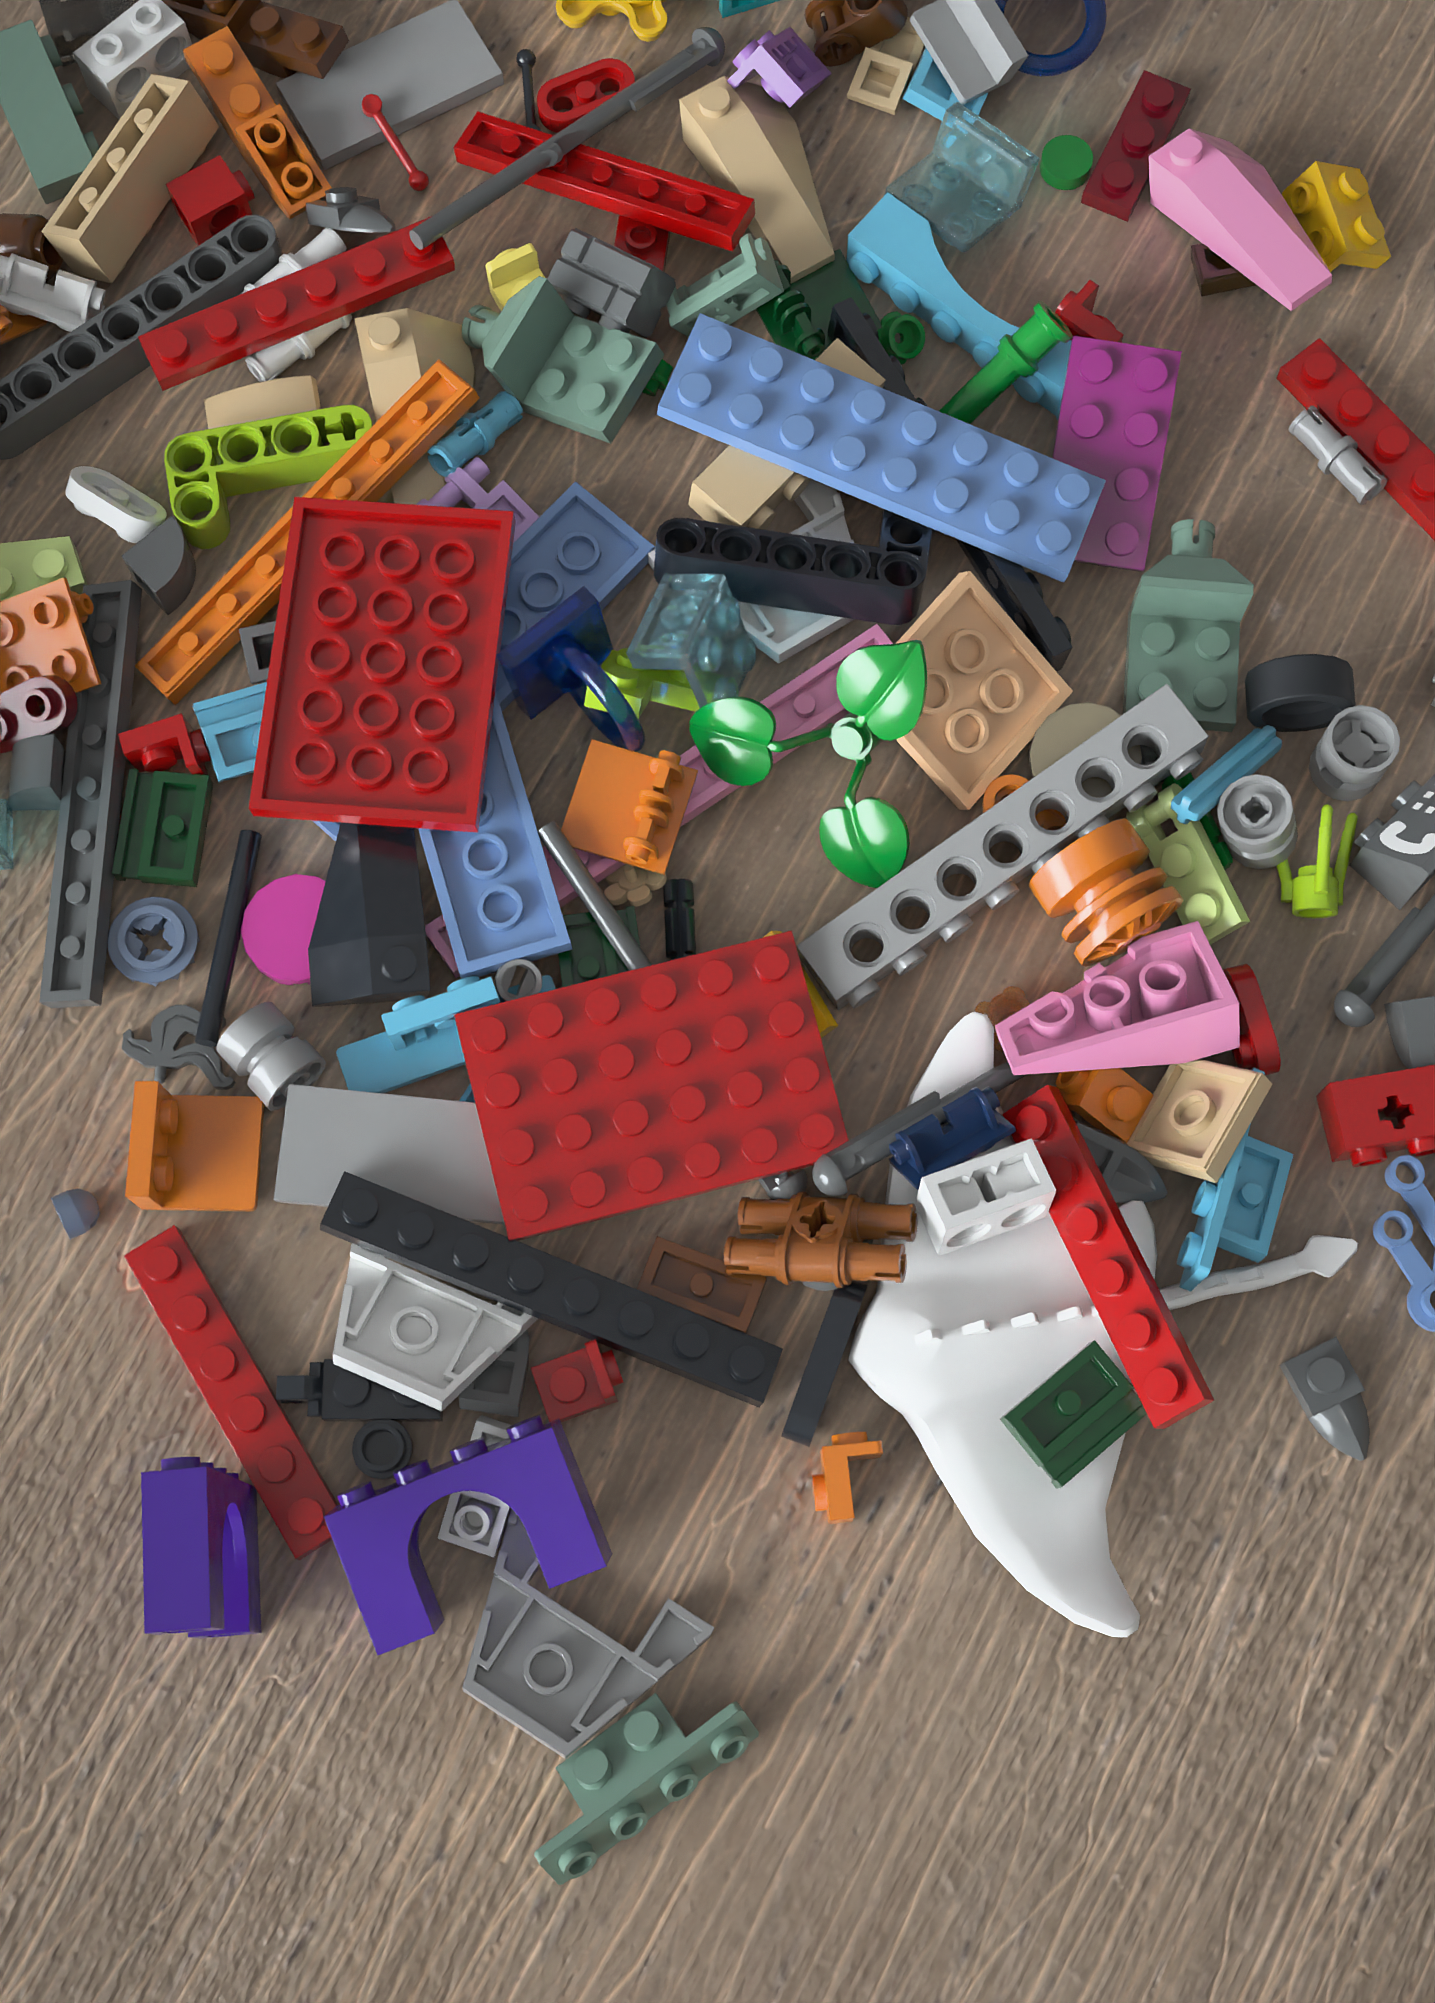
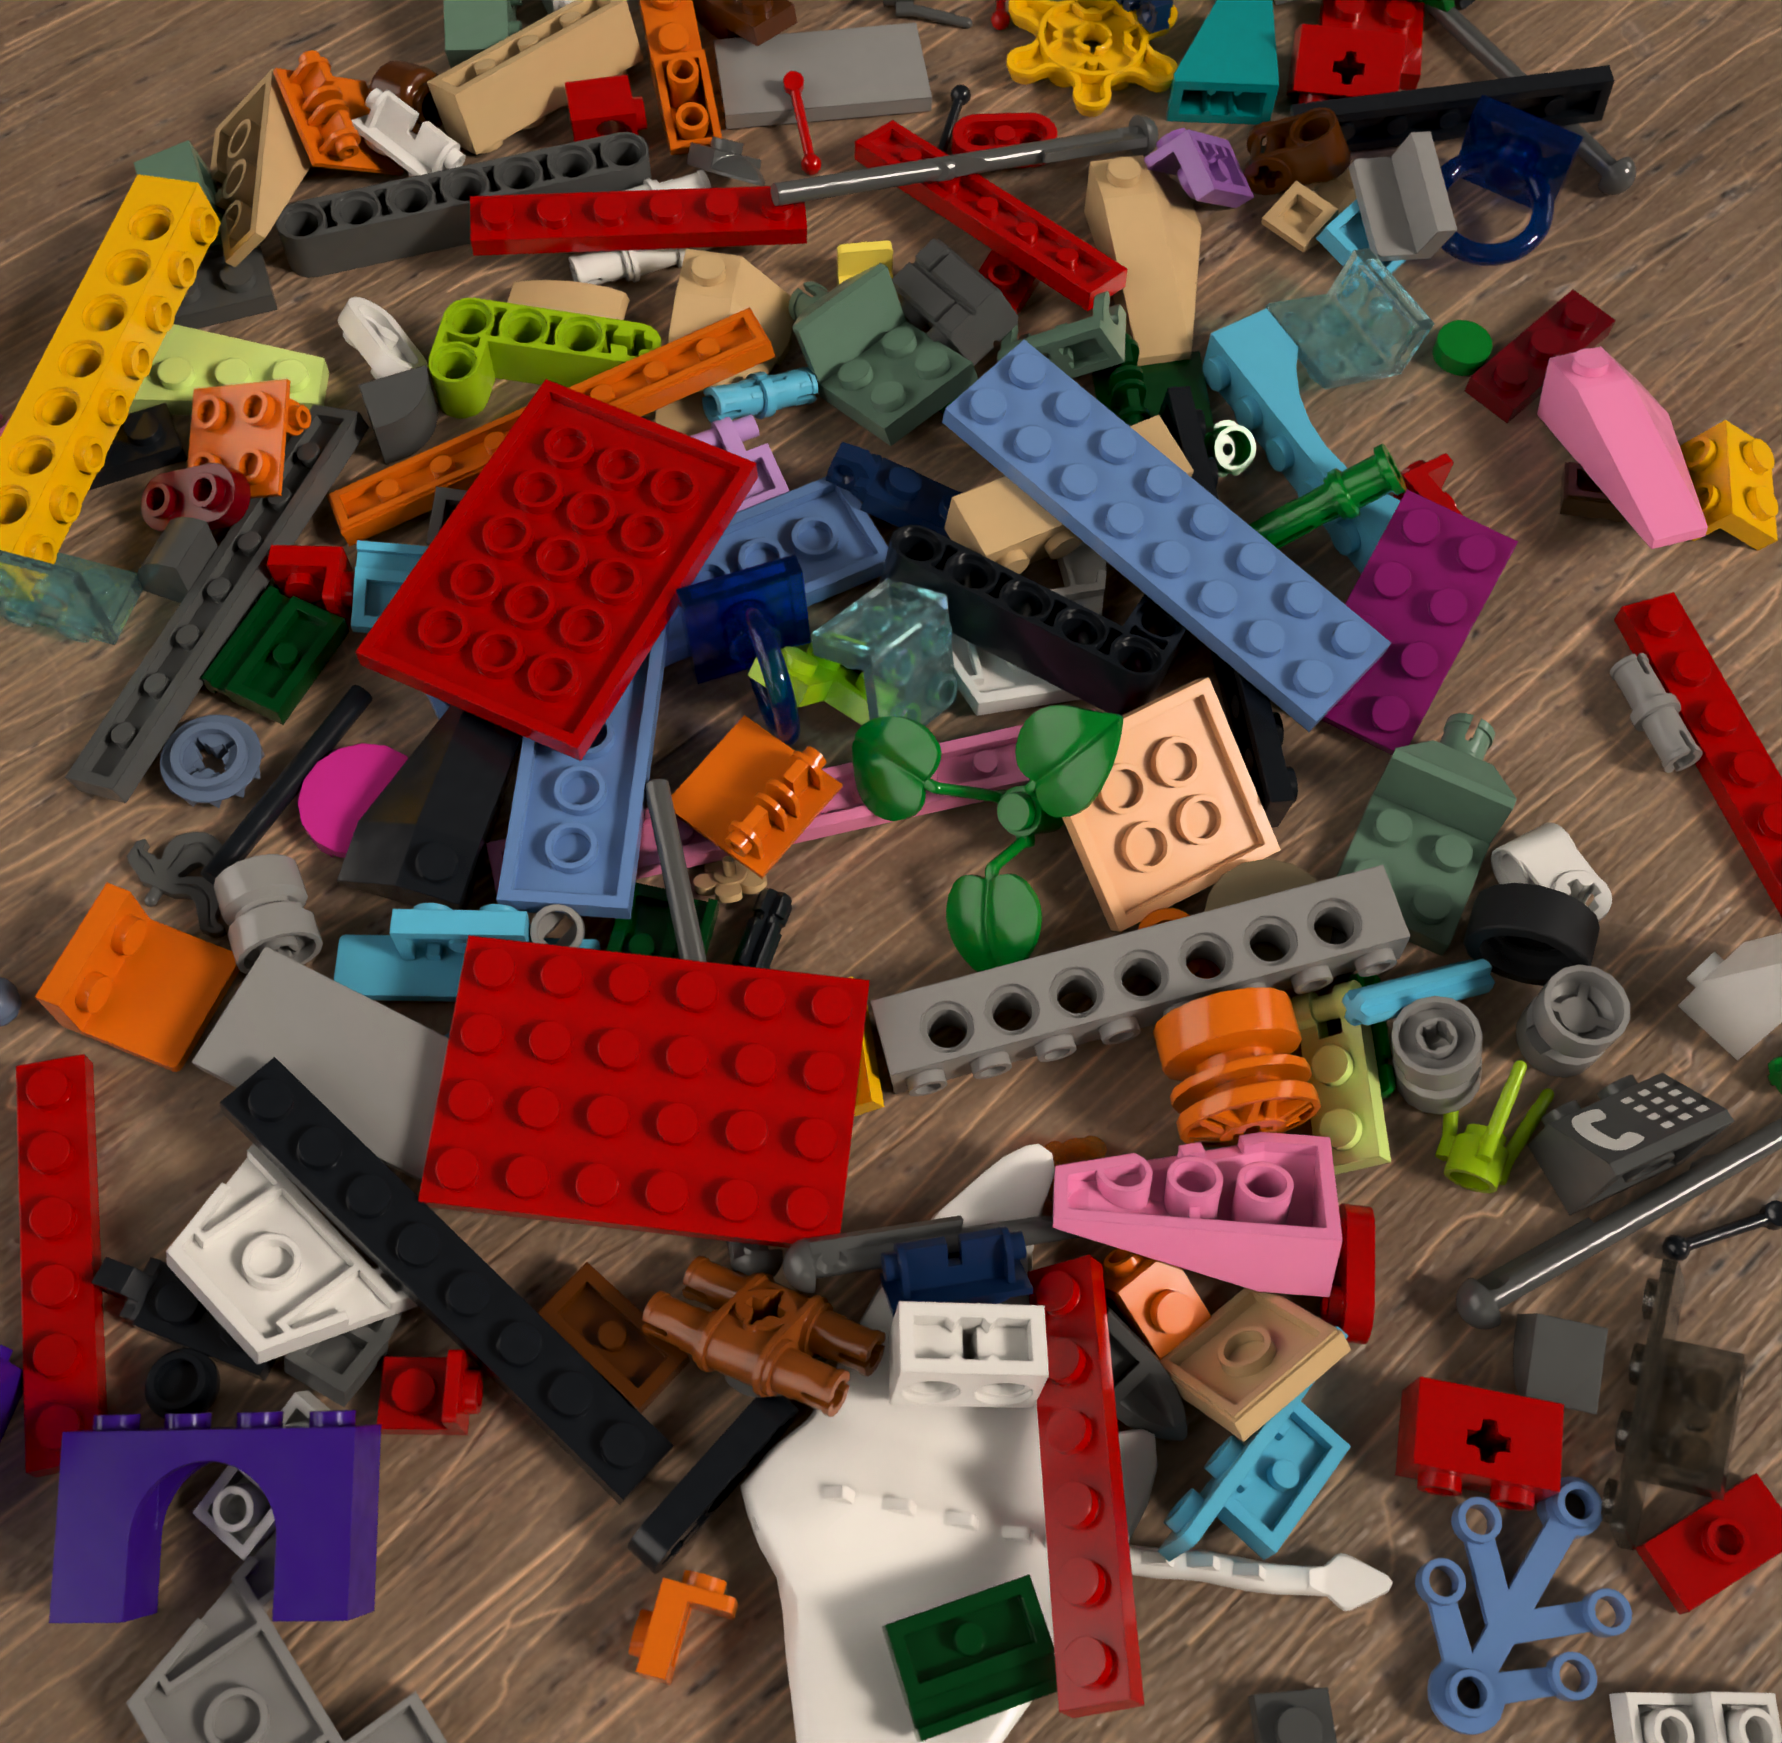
camera: 15 degrees right, 10 degrees down
(635, 485) = (891, 489): none -> dark blue hinge
(1296, 627) = (1551, 860): none -> white piece

